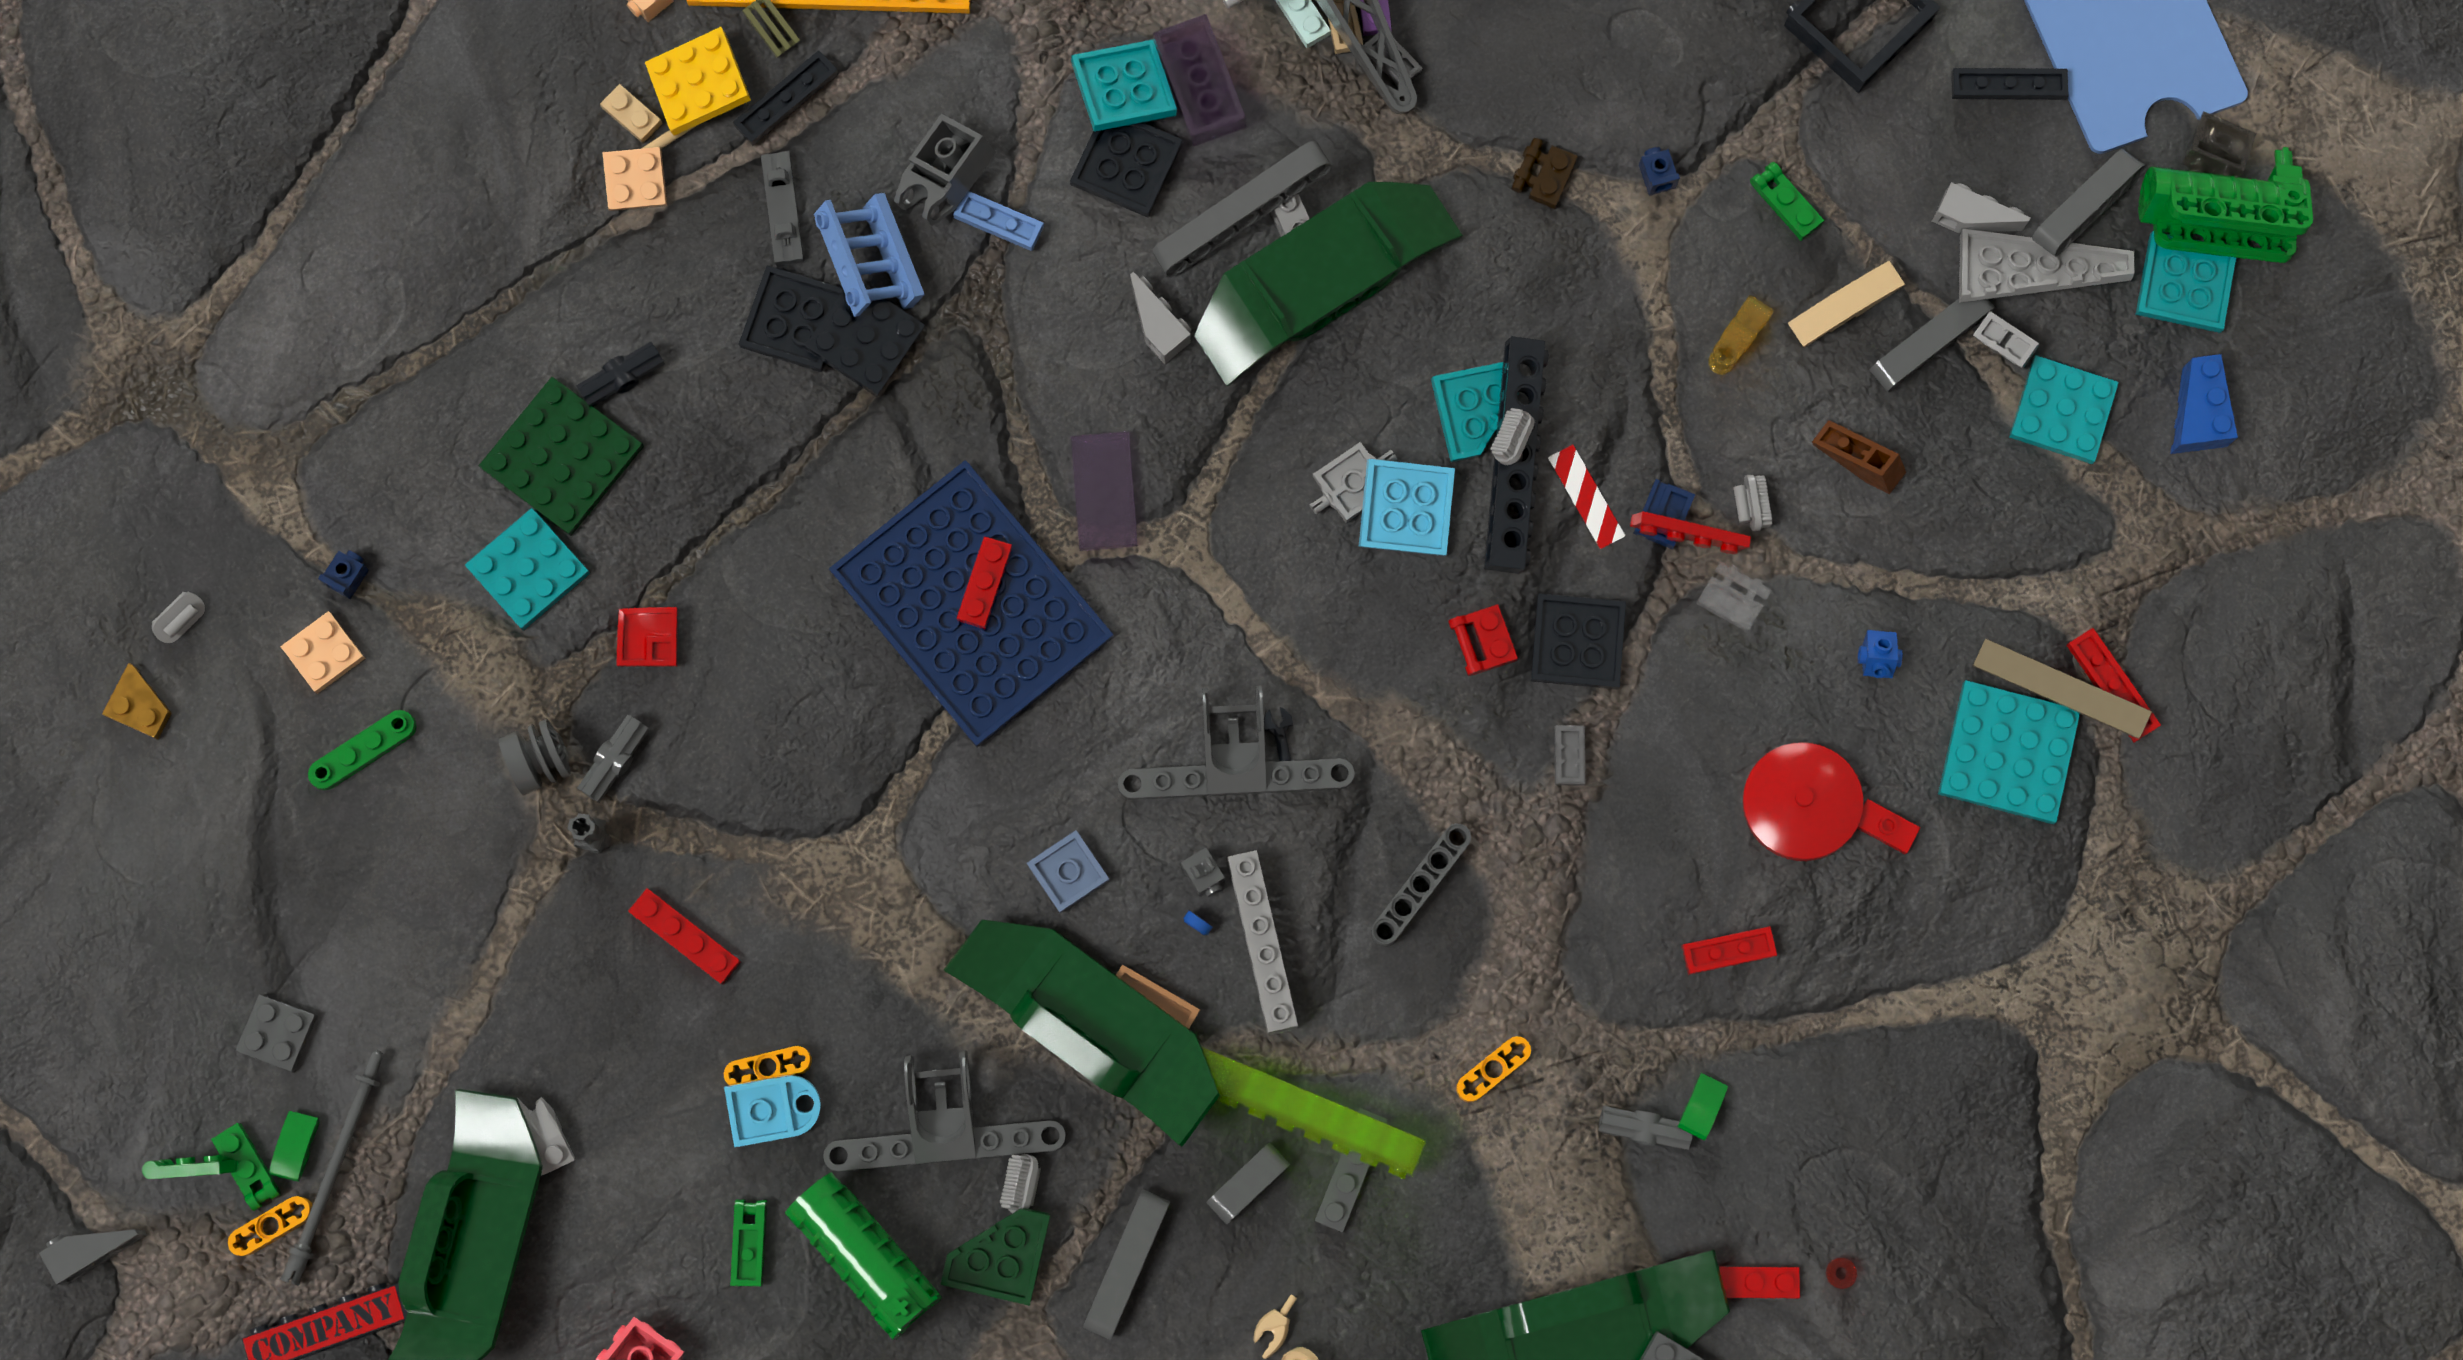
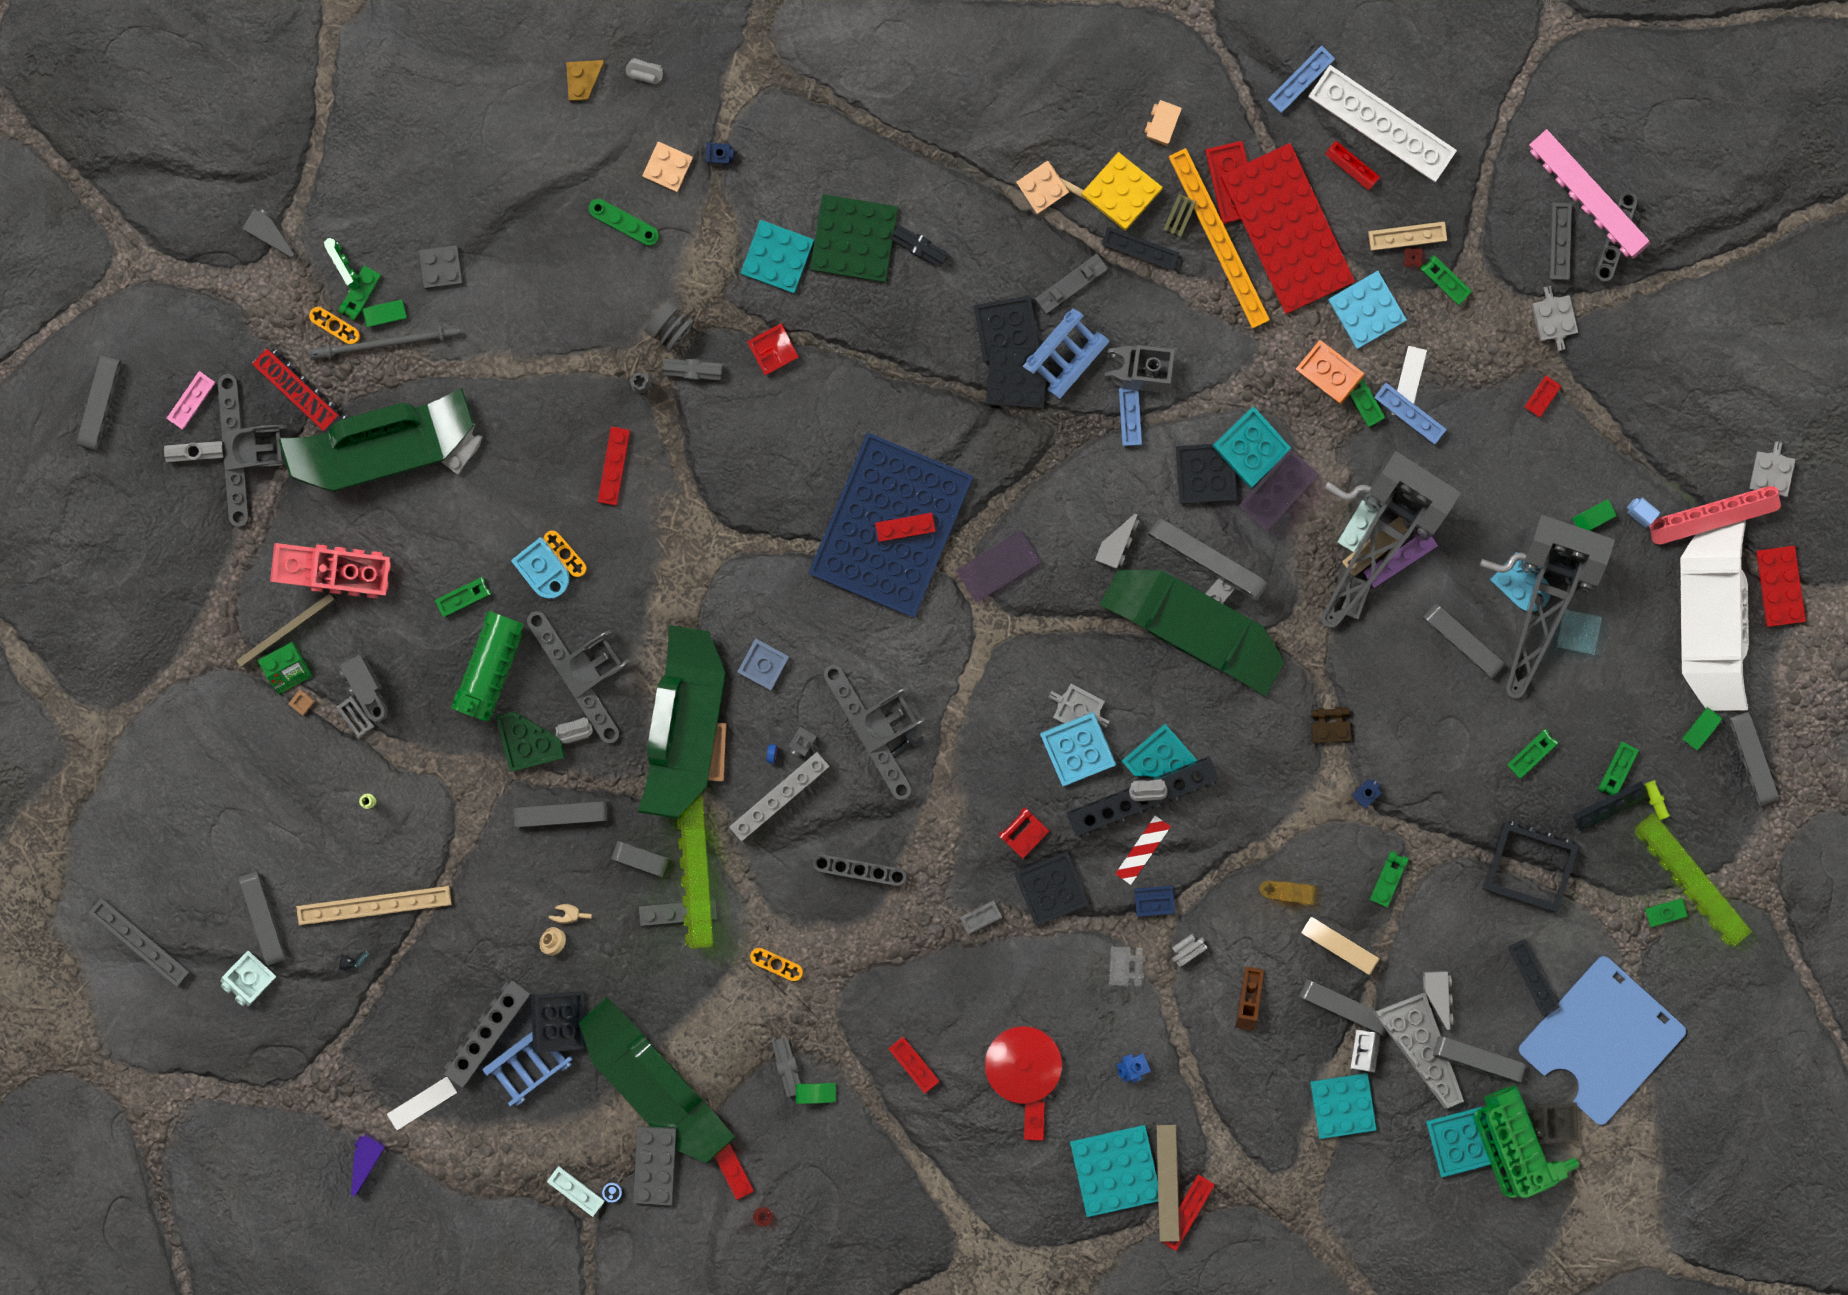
camera: 65 degrees right, 10 degrees up
(631, 113) = (1083, 161): tan plate -> none
(1678, 530) = (1149, 929): red plate -> none
(2204, 407) = (1384, 1188): blue wedge -> none

